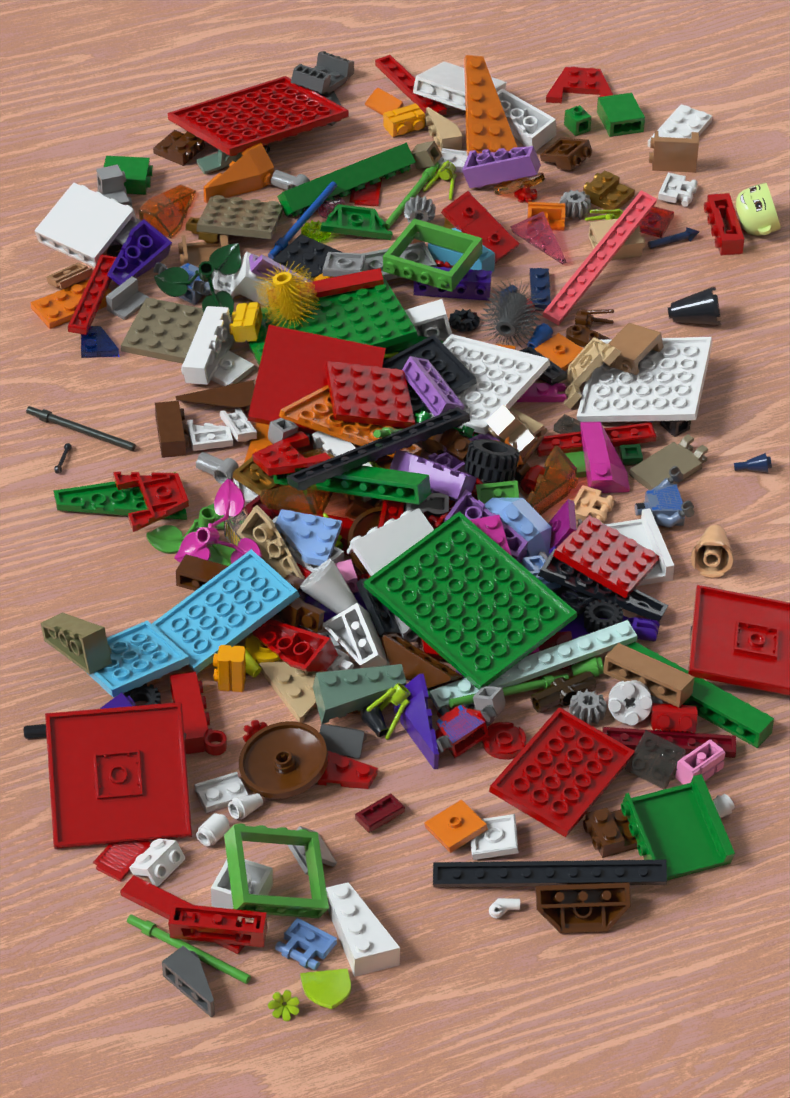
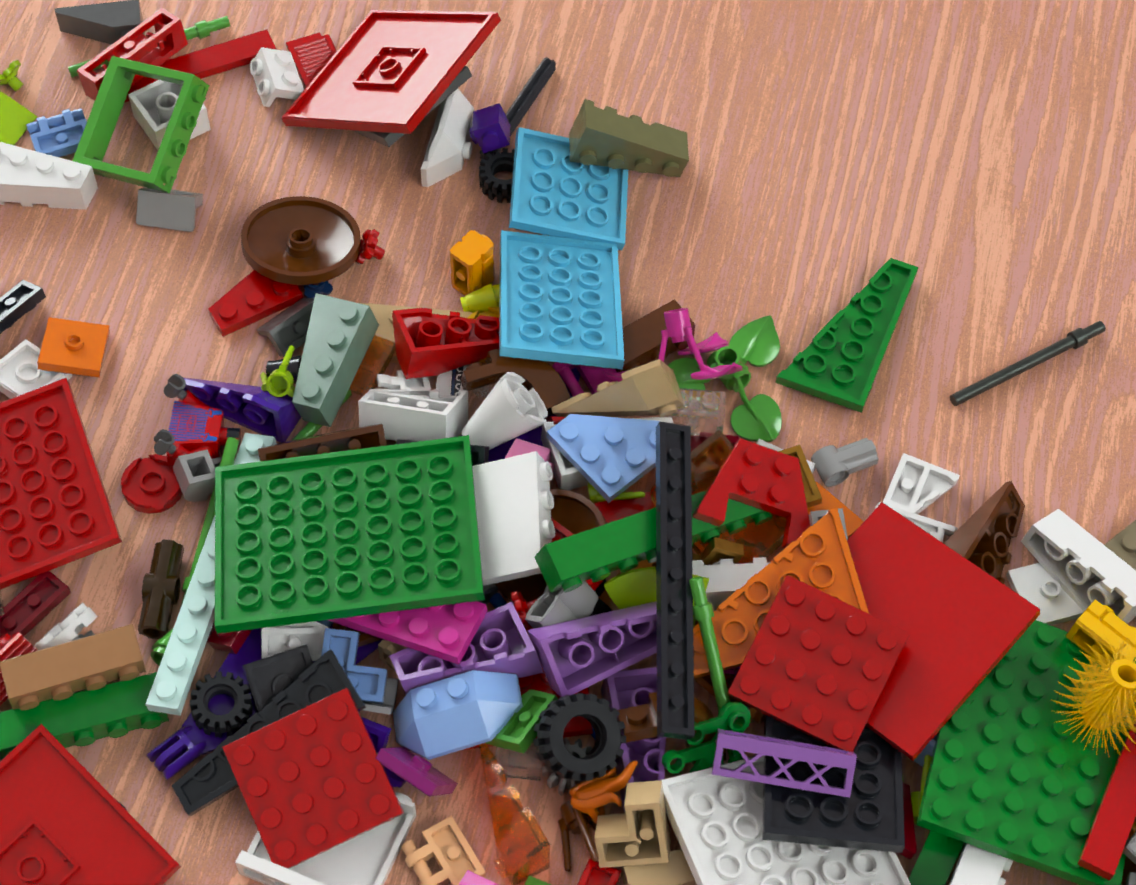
camera: 125 degrees right, 15 degrees up
(58, 469) = (965, 302): black hinge -> none
(161, 493) = (823, 358): red wing -> none
(171, 429) = (956, 449): reddish brown brick -> none
(188, 690) = (442, 205): red hinge -> none
(213, 829) = (271, 138): white brick -> none
(220, 791) = (321, 177): white plate -> none
(245, 805) = (279, 180): white cone -> none
(379, 813) = (159, 294): dark red plate -> none
(530, 479) = (547, 816): red brick -> none
(588, 706) = (124, 591): light grey gear -> none

